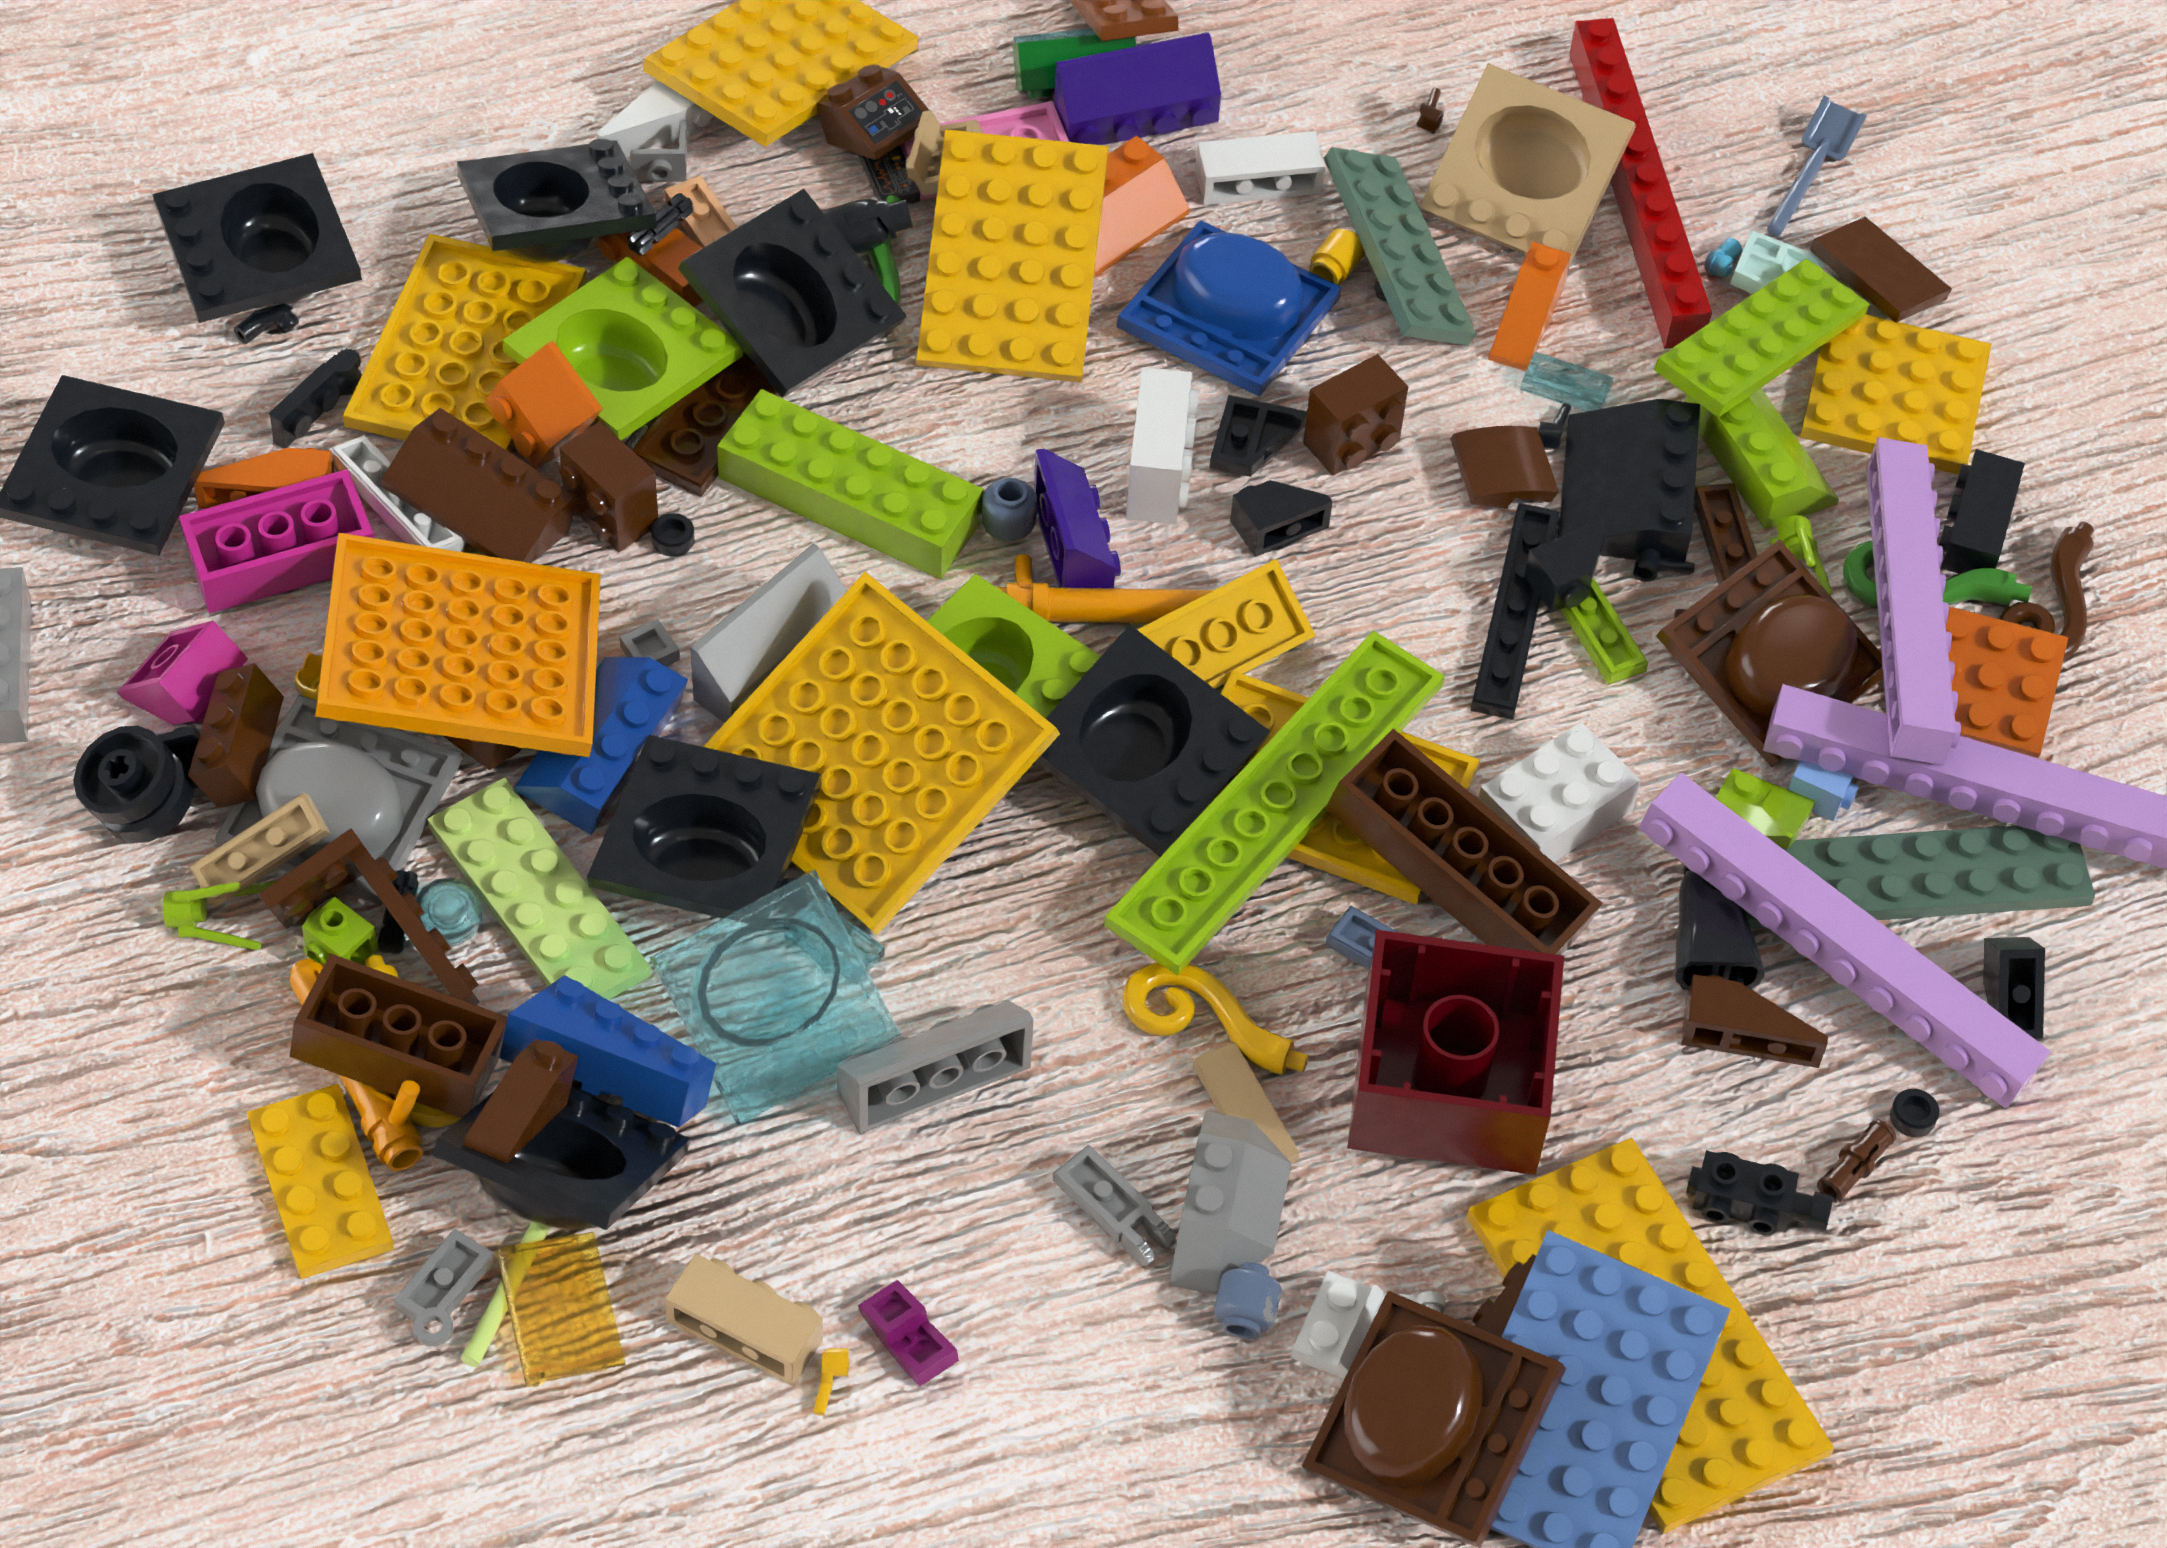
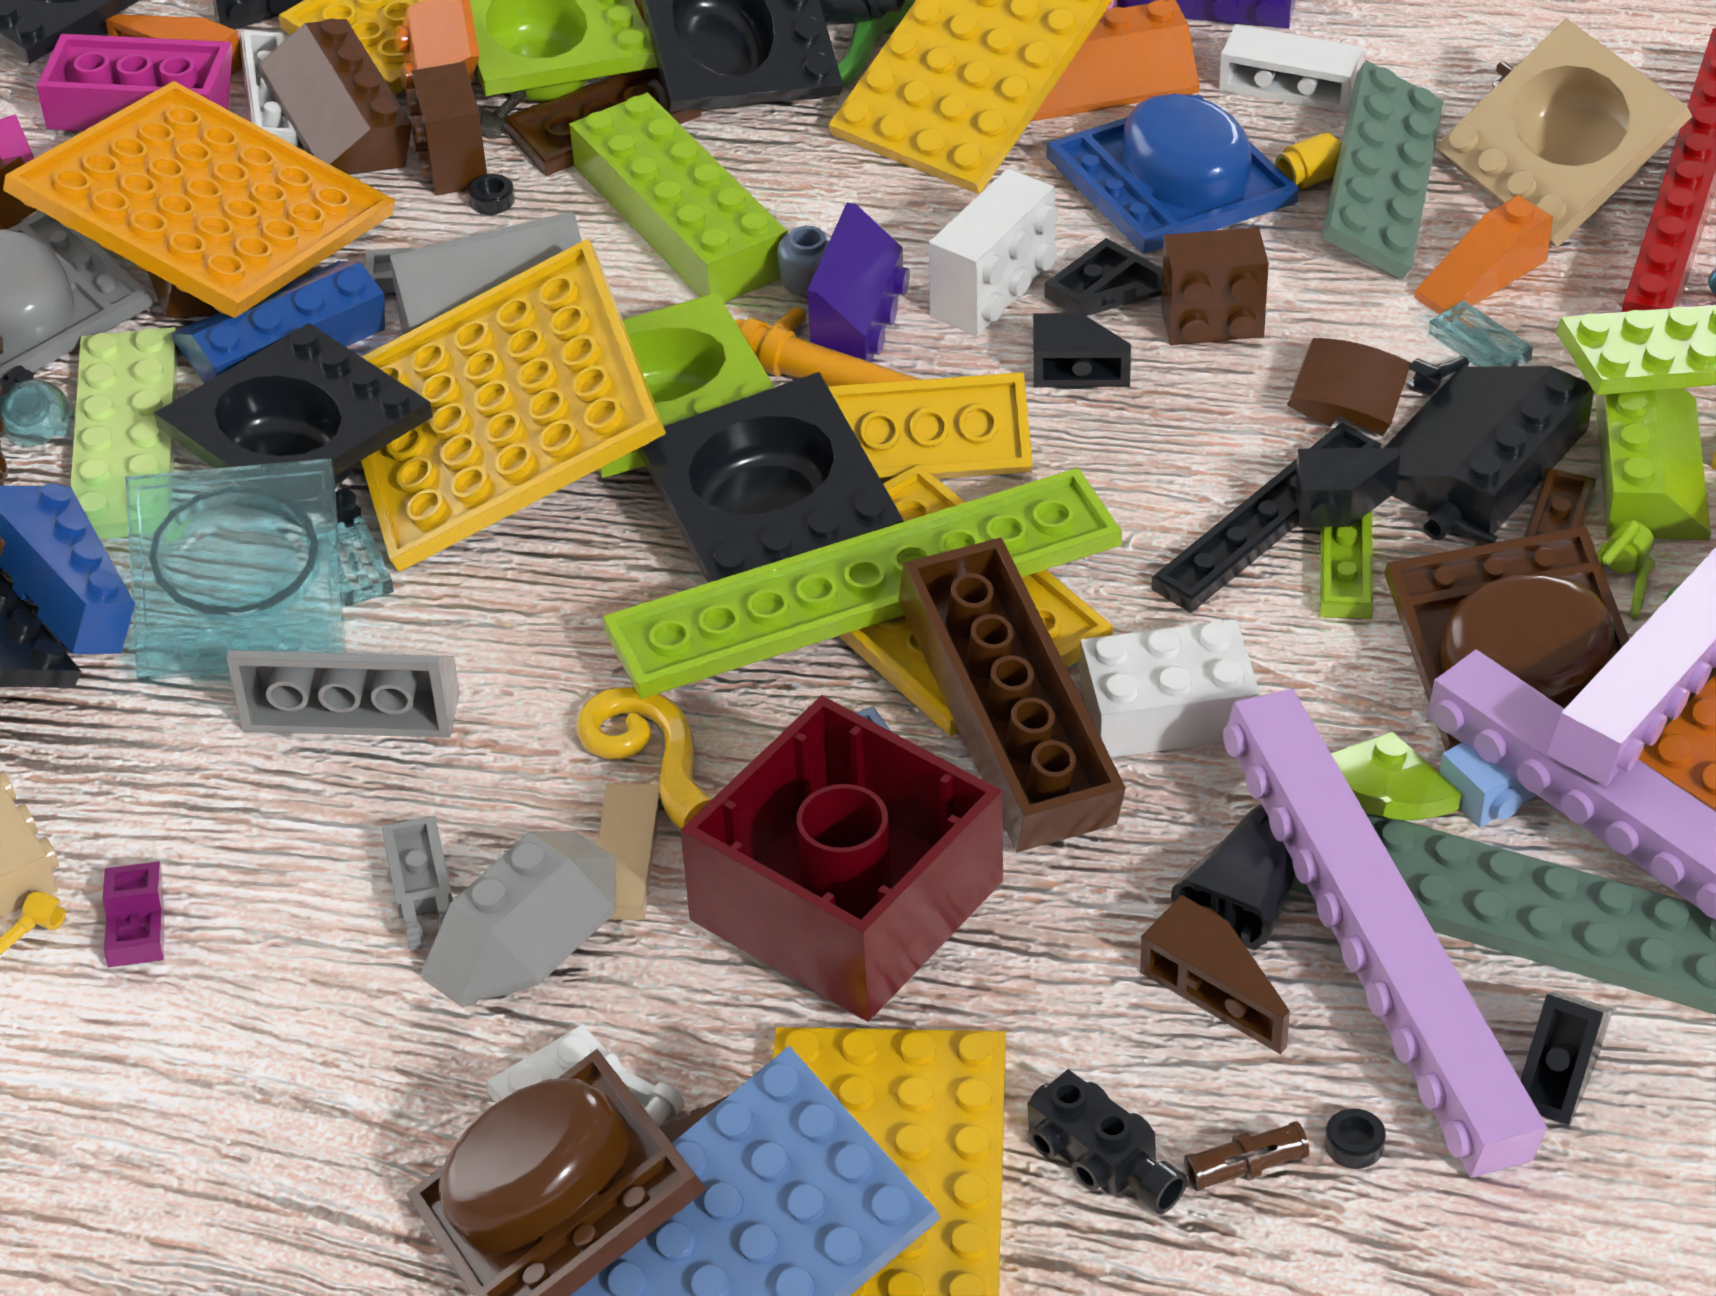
camera: 35 degrees right, 10 degrees down
(1247, 1300) = (473, 1015): sand blue head -> none

